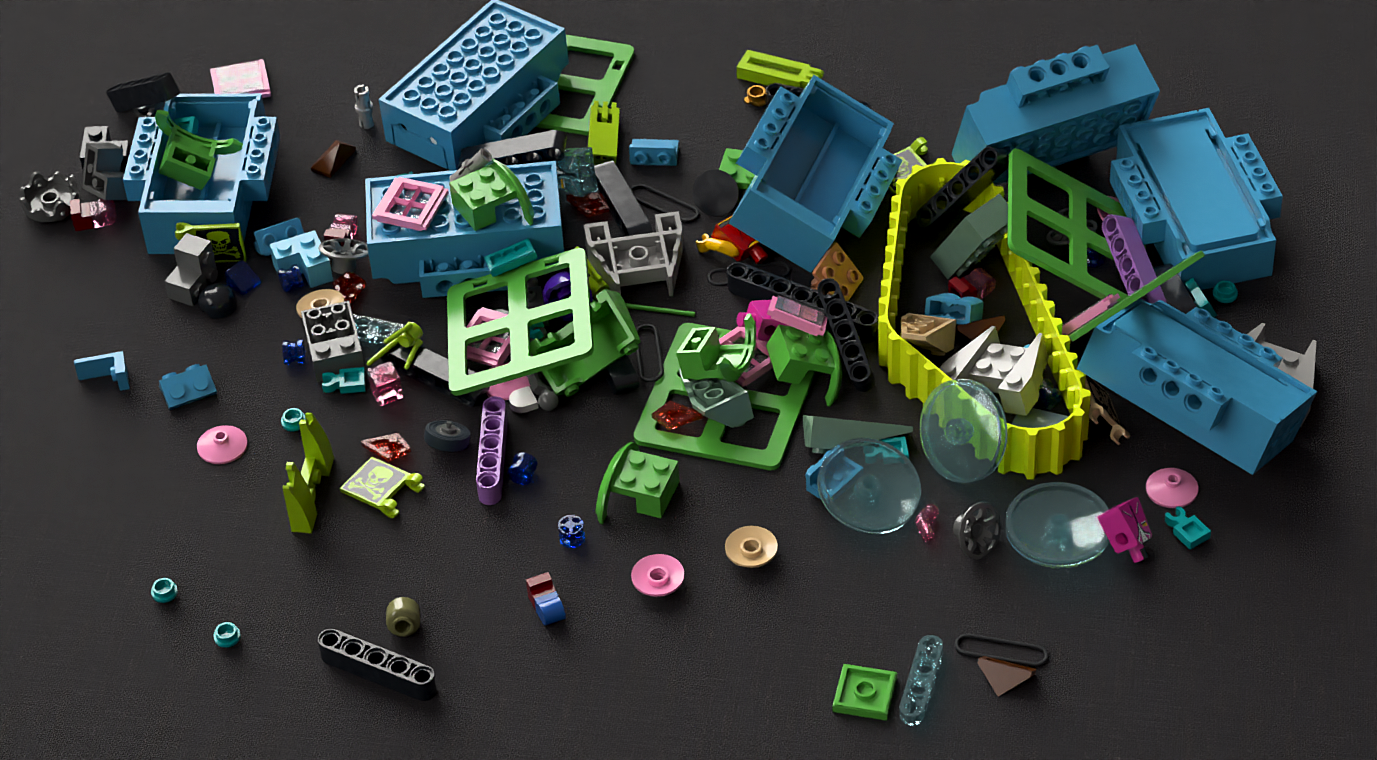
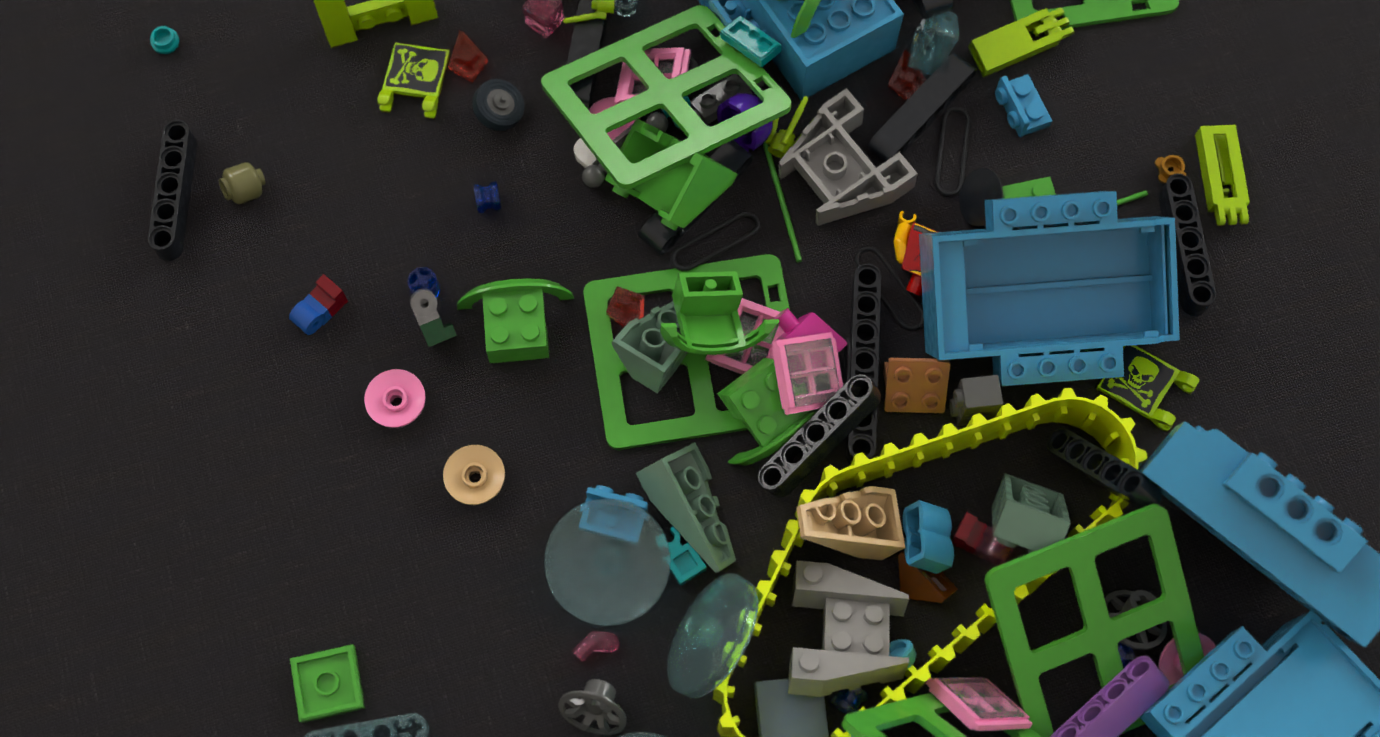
camera: 60 degrees right, 25 degrees up
(492, 450) = (506, 144): medium lavender beam -> none
(605, 529) = (424, 307): none -> leg
(870, 246) = (974, 397): none -> dark grey brick

